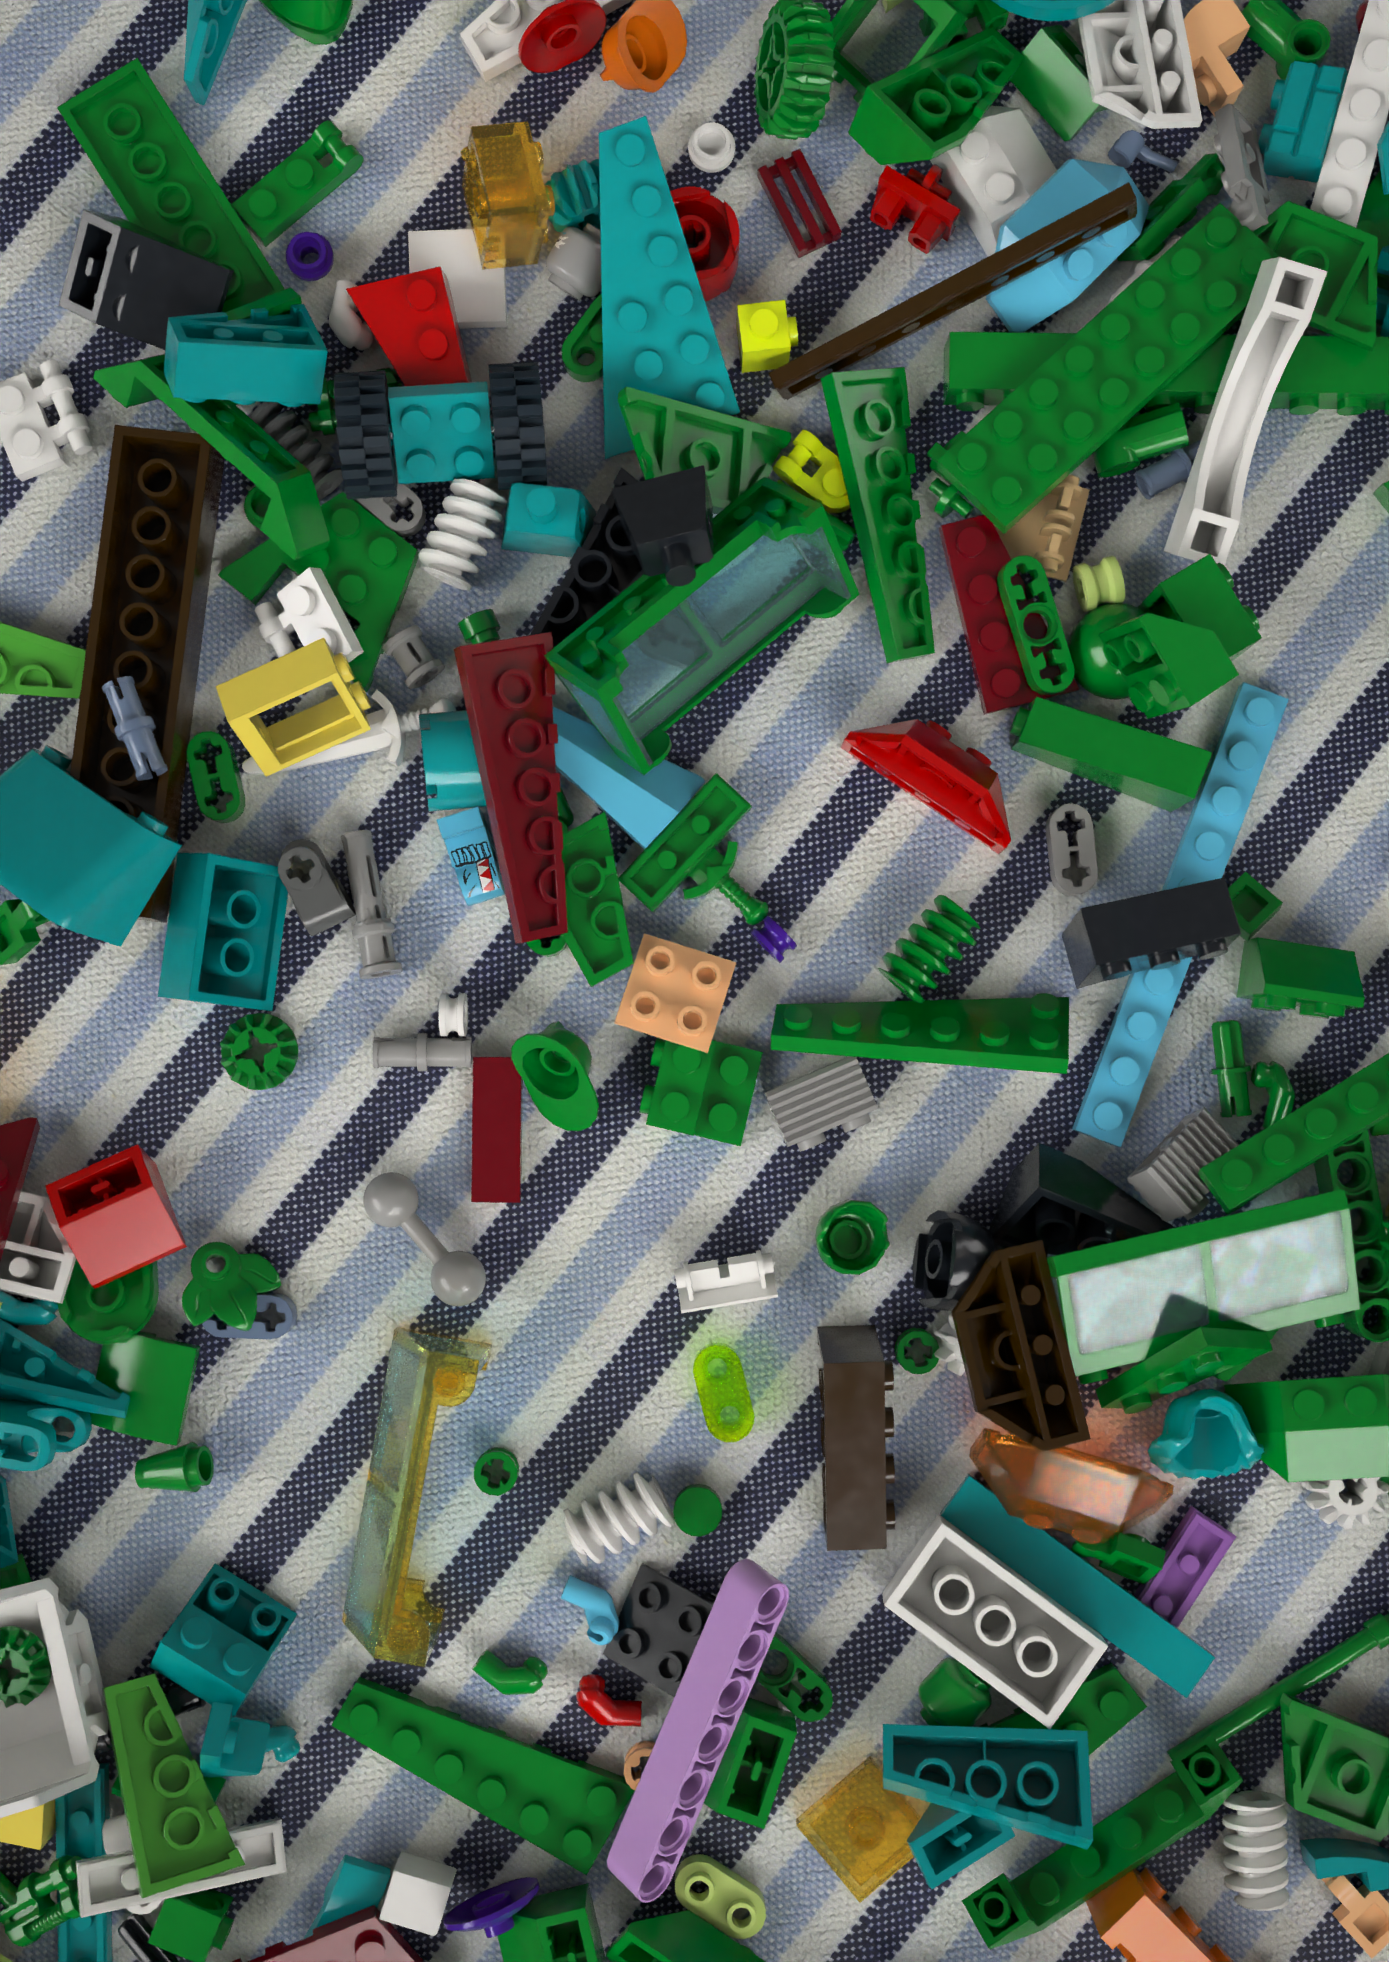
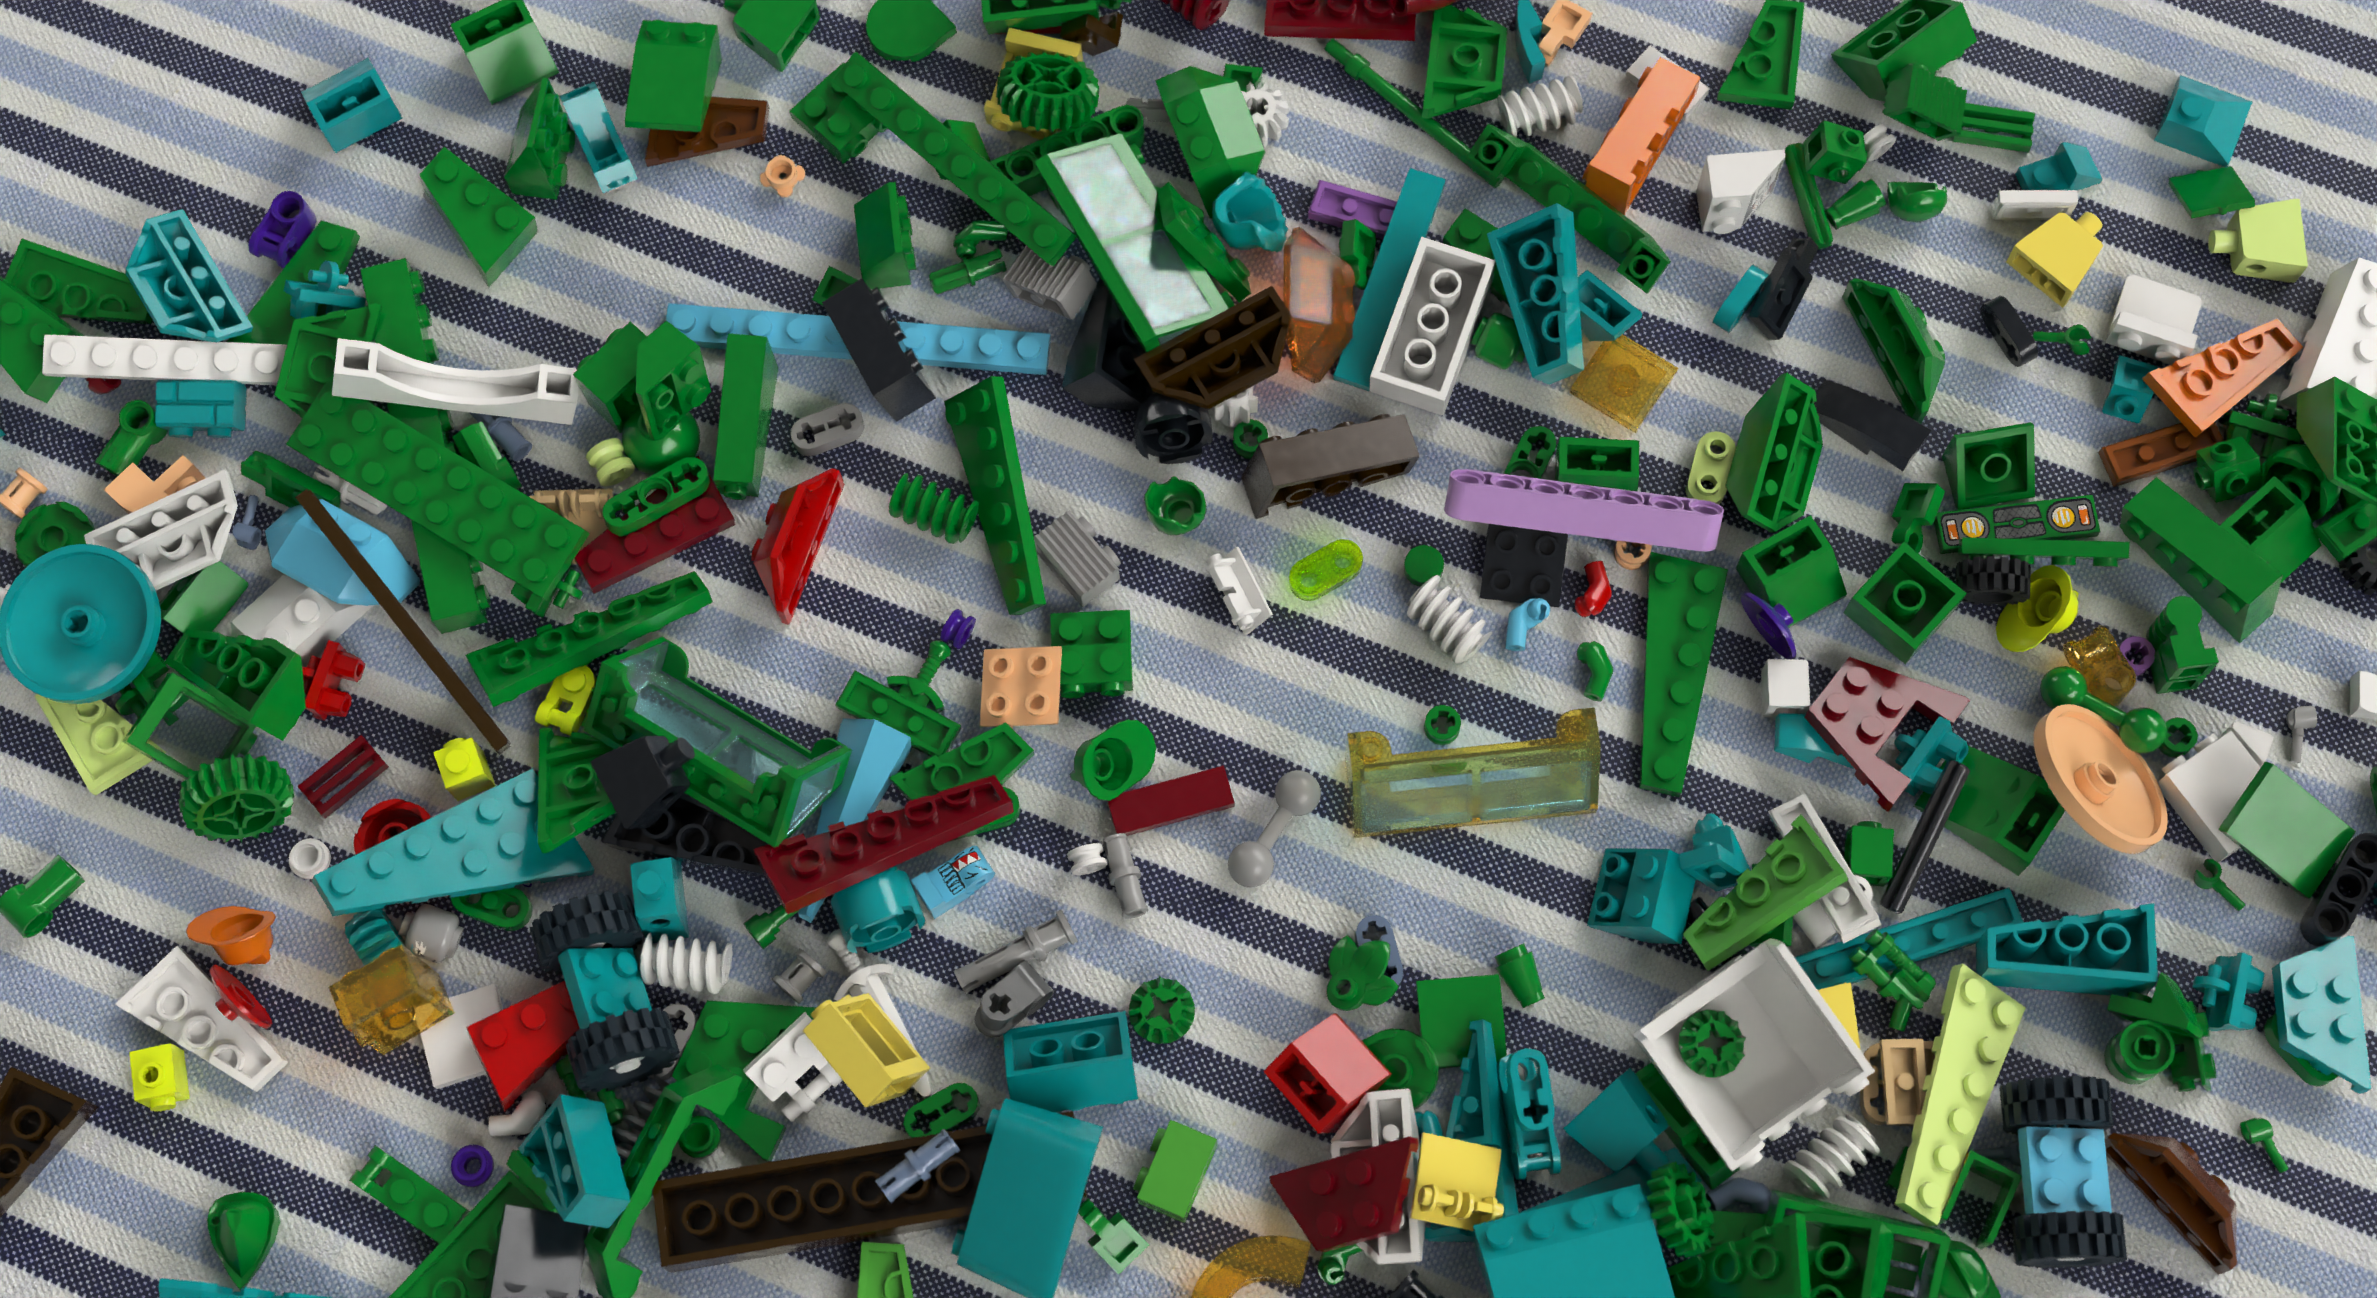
camera: 105 degrees left, 15 degrees down
(69, 1016) = (1175, 1171): none -> bright green brick
(1244, 169) = (254, 436): light grey hinge -> none

